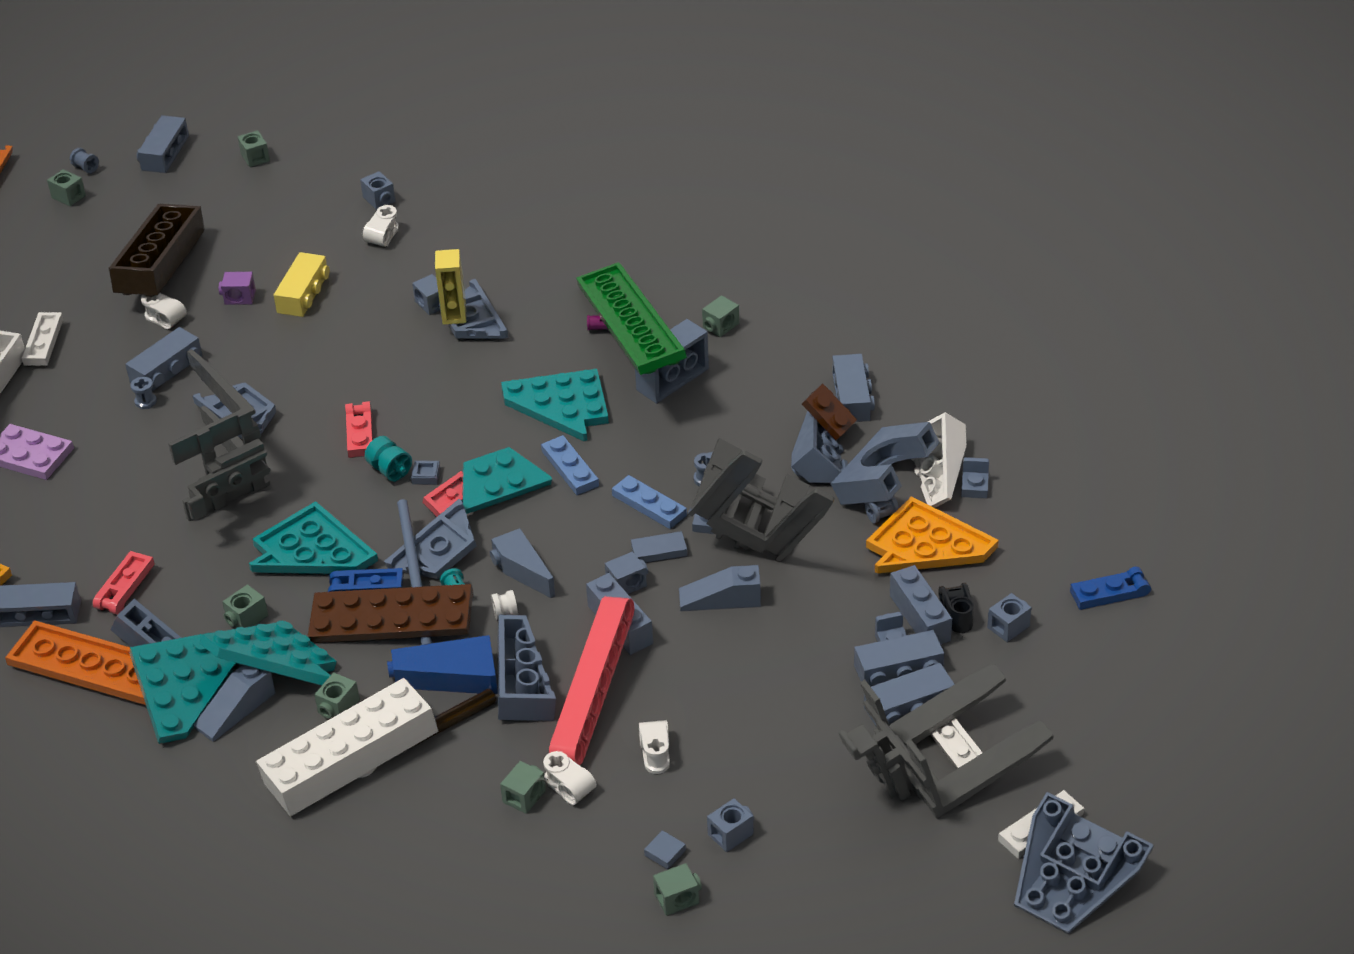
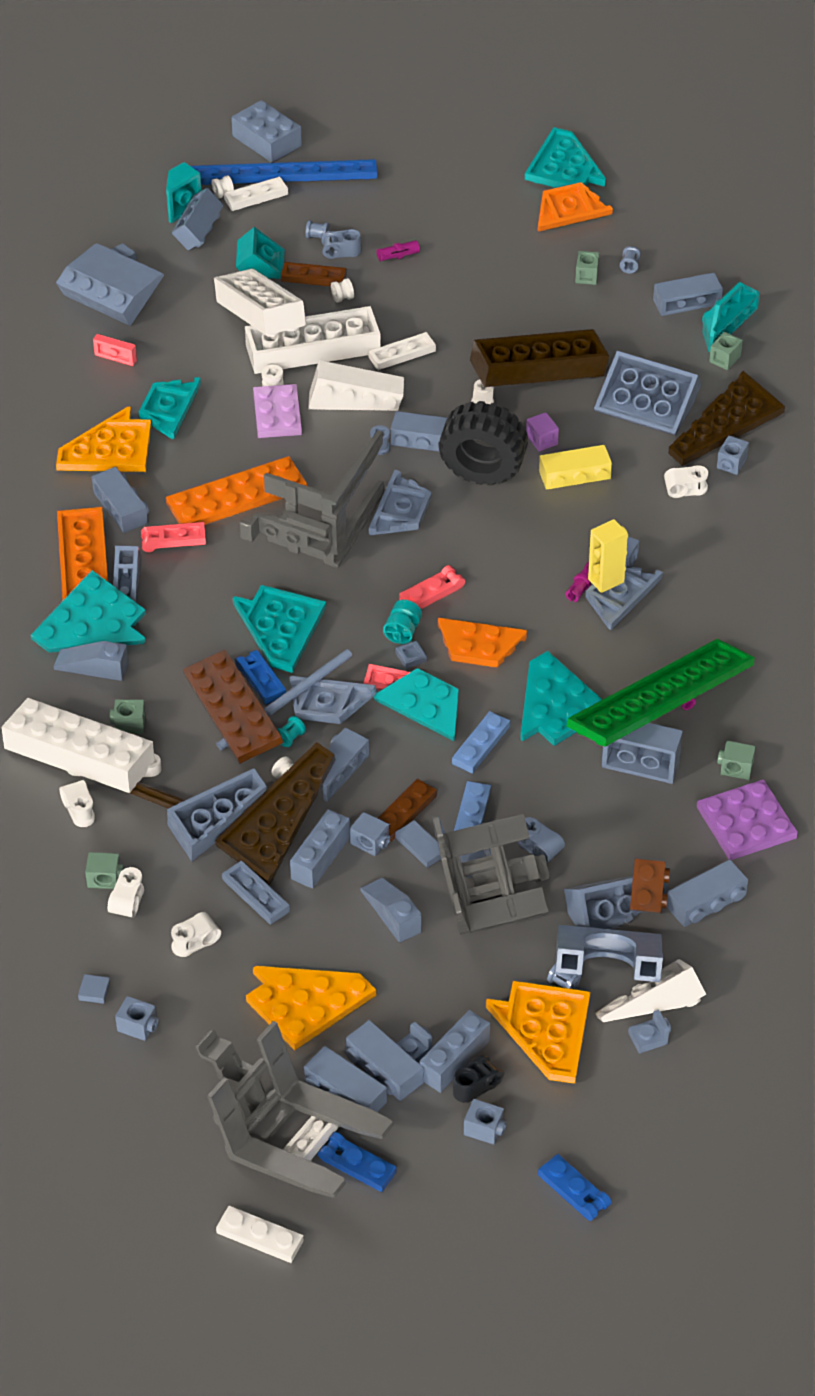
camera: 60 degrees right, 5 degrees up
(62, 384) = (354, 389): none -> white wedge
(108, 519) = (230, 494): none -> orange plate
(214, 133) = (729, 312): none -> teal wedge
(219, 303) = (486, 424): none -> black tyre
(245, 608) = (187, 618): sand green brick -> none
(257, 208) = (648, 393): none -> sand blue slope
(272, 648) = (143, 652): teal wing -> none
(331, 177) = (730, 414): none -> dark brown wing
(414, 776) = (78, 802): none -> white piece
(438, 332) = (579, 585): none -> magenta pin
(446, 666) = (197, 761): blue slope -> none
(449, 423) = (479, 642): none -> orange wing
(555, 621) = (272, 821): none -> dark brown wing
(592, 678) = (227, 859): coral beam -> none
(605, 537) = (408, 806): none -> reddish brown plate
(642, 680) = (255, 892): none -> sand blue plate
(677, 889) = (53, 1011): sand green brick -> none
(783, 339) = (746, 819): none -> medium lavender plate
(786, 694) = (307, 1000): none -> light orange wing
(1001, 722) = (357, 1162): none -> blue plate
(1073, 865) = (221, 1268): sand blue wedge -> none

